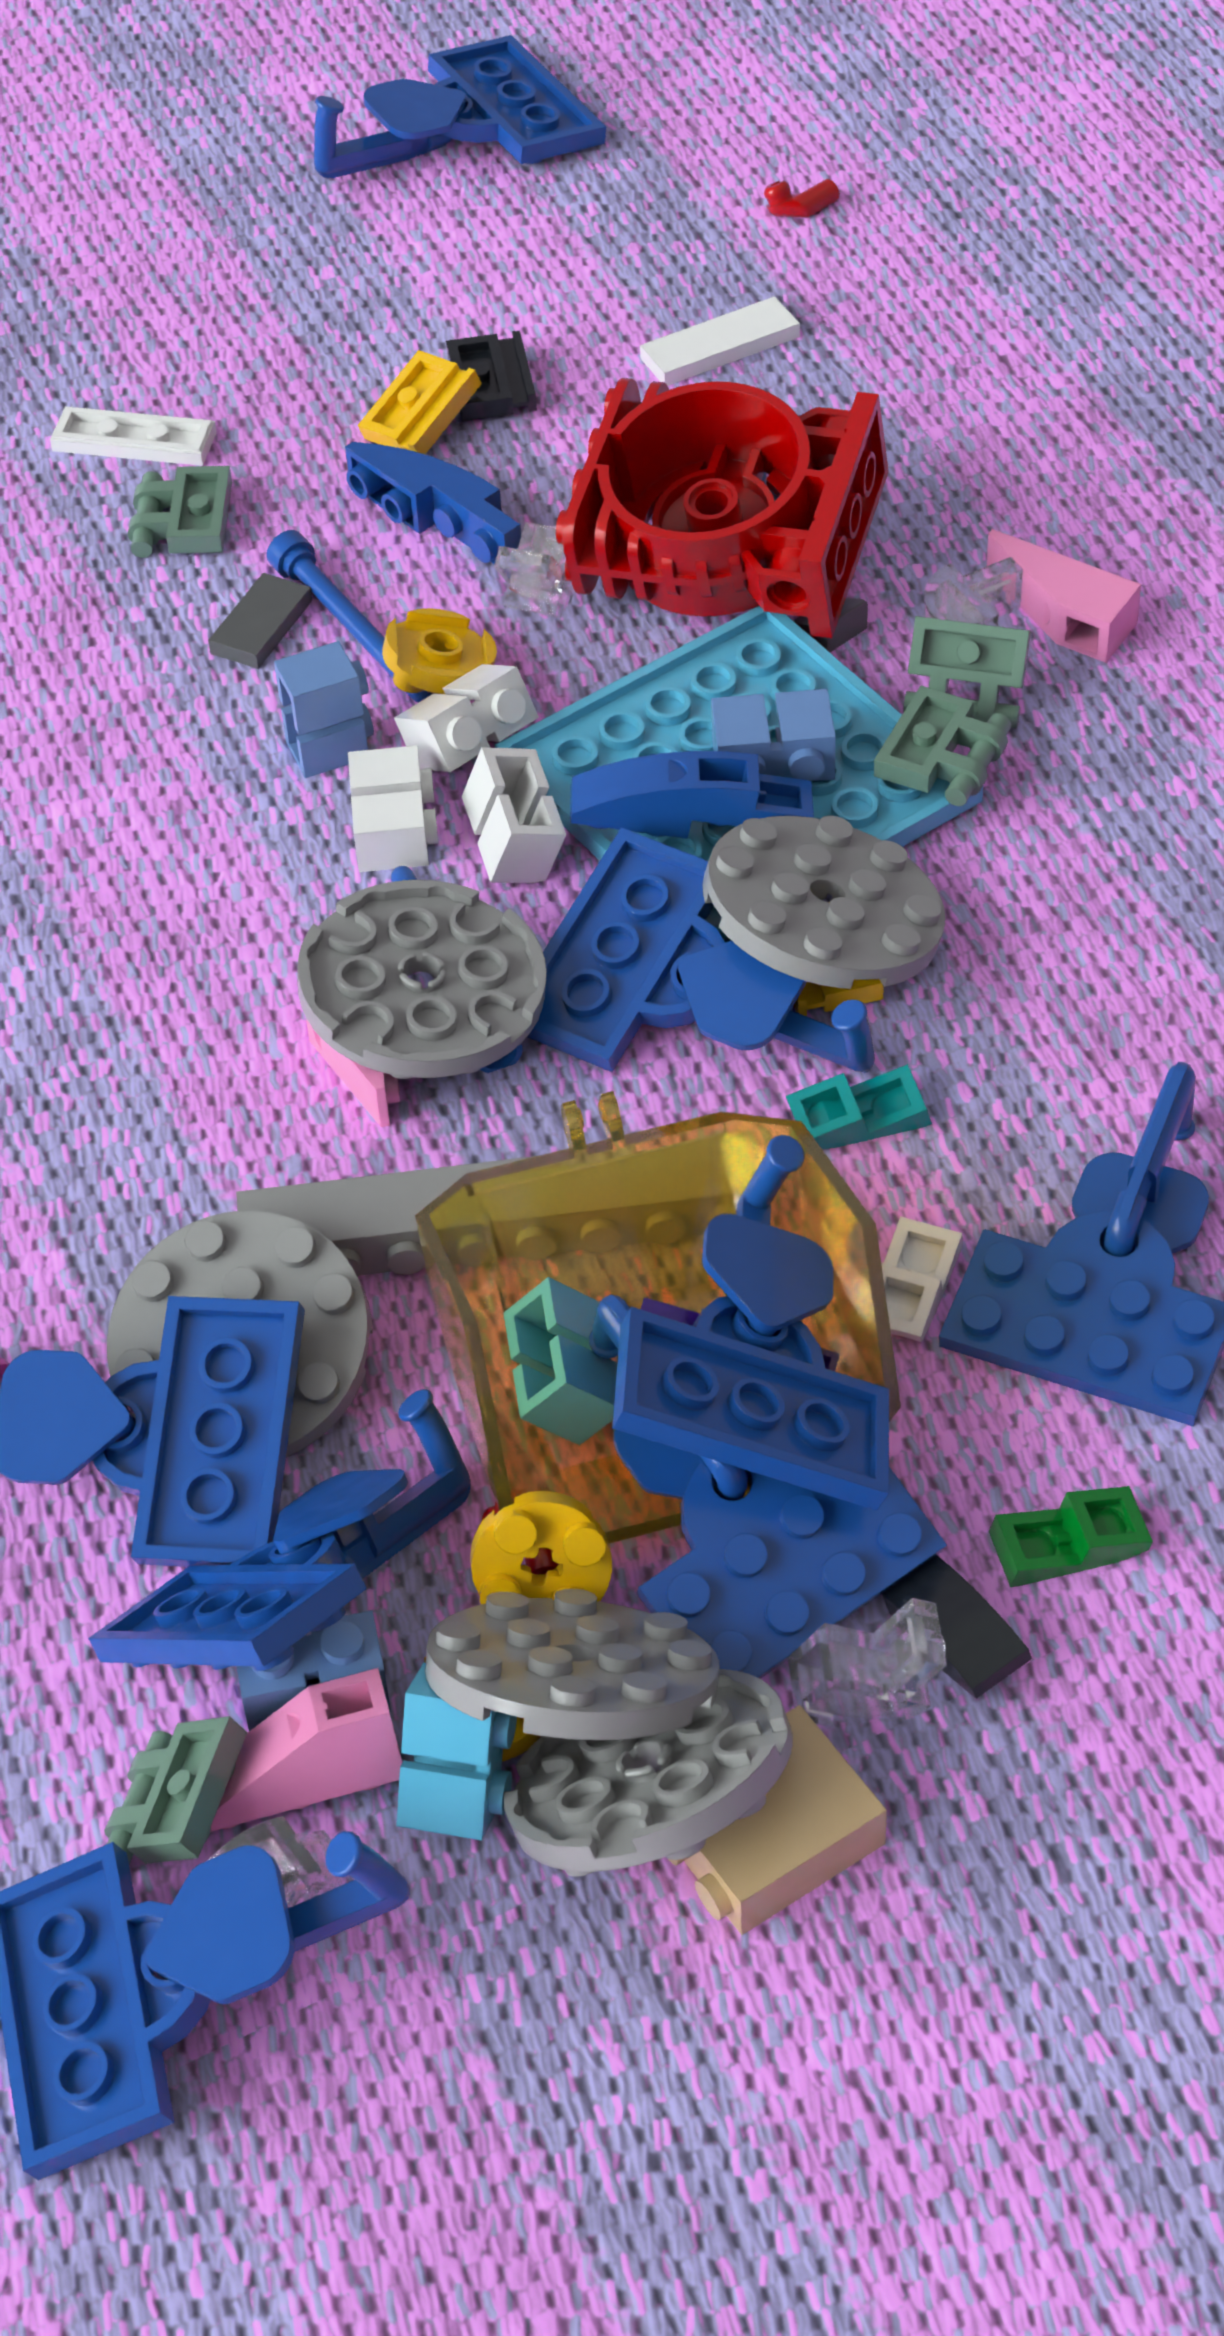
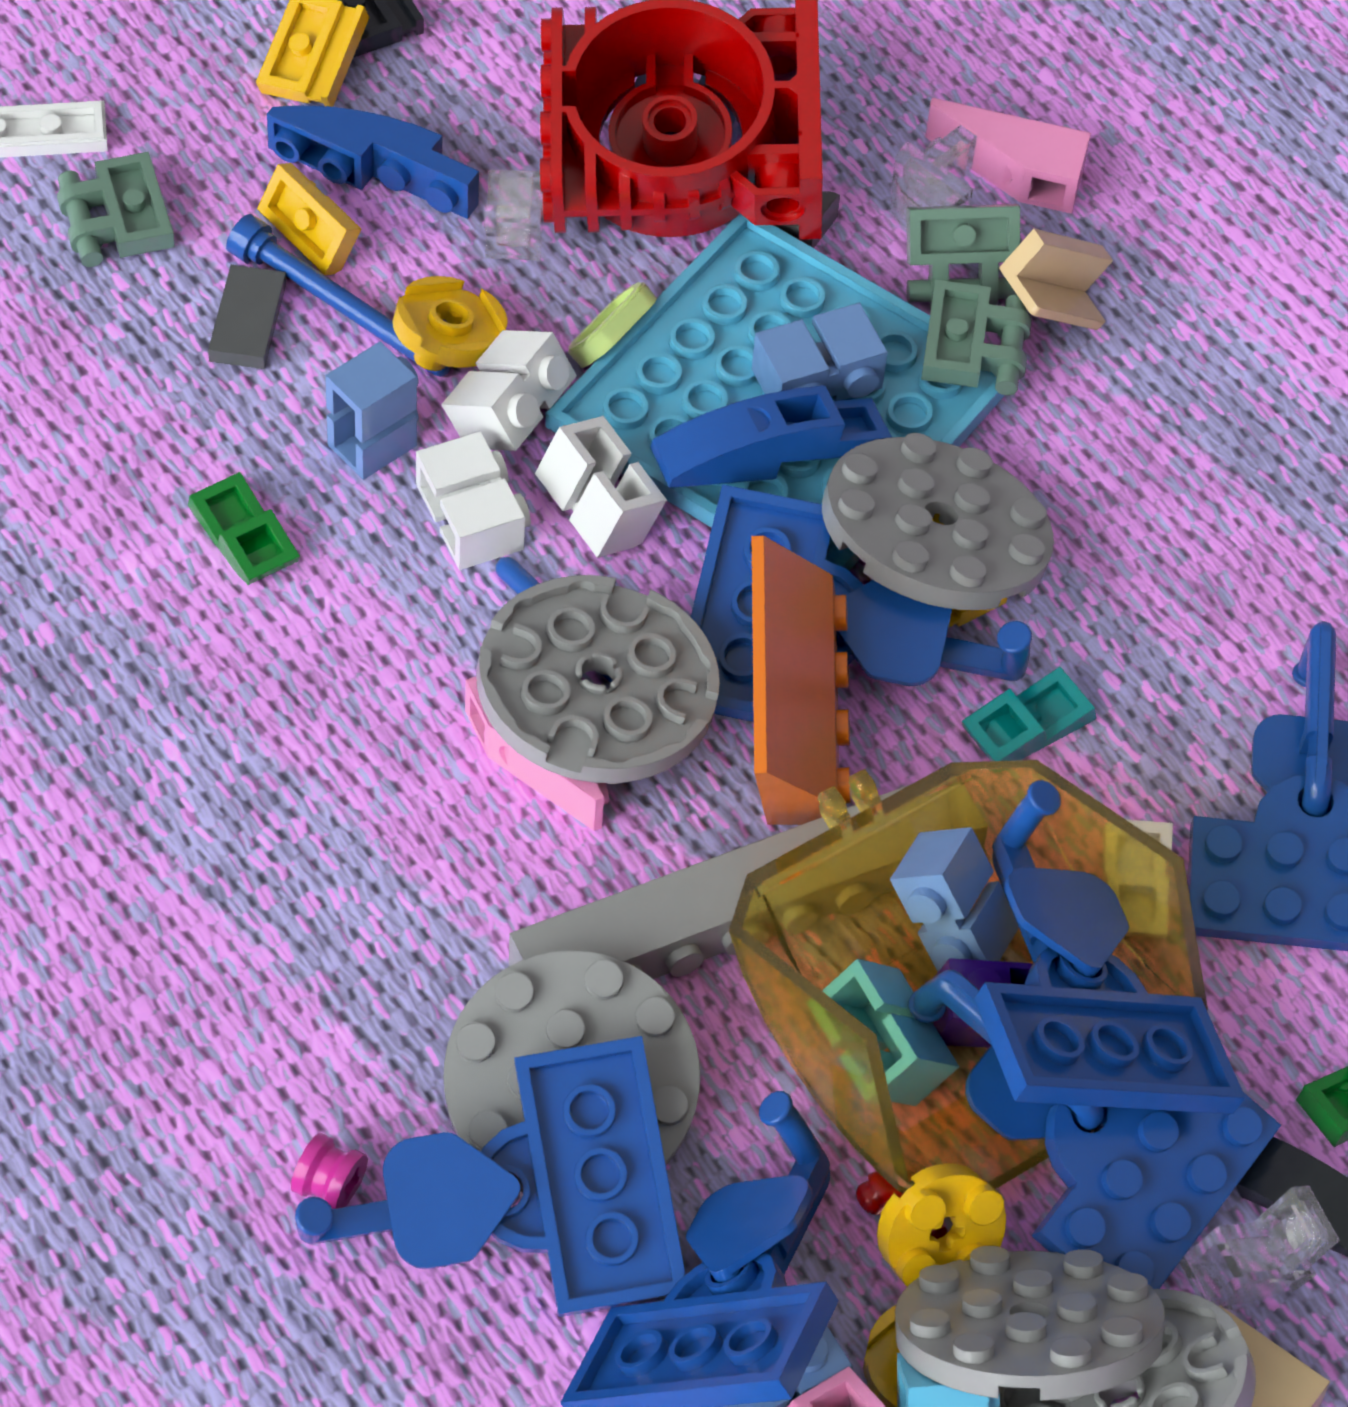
camera: 25 degrees left, 5 degrees up
(169, 797) = (242, 530): none -> green slope
(351, 545) = (309, 219): none -> yellow plate
(594, 678) = (611, 324): none -> yellowish green tile
(597, 1002) = (796, 684): none -> orange slope
(663, 1231) = (940, 886): none -> medium blue piece
(1052, 706) = (1053, 277): none -> tan panel

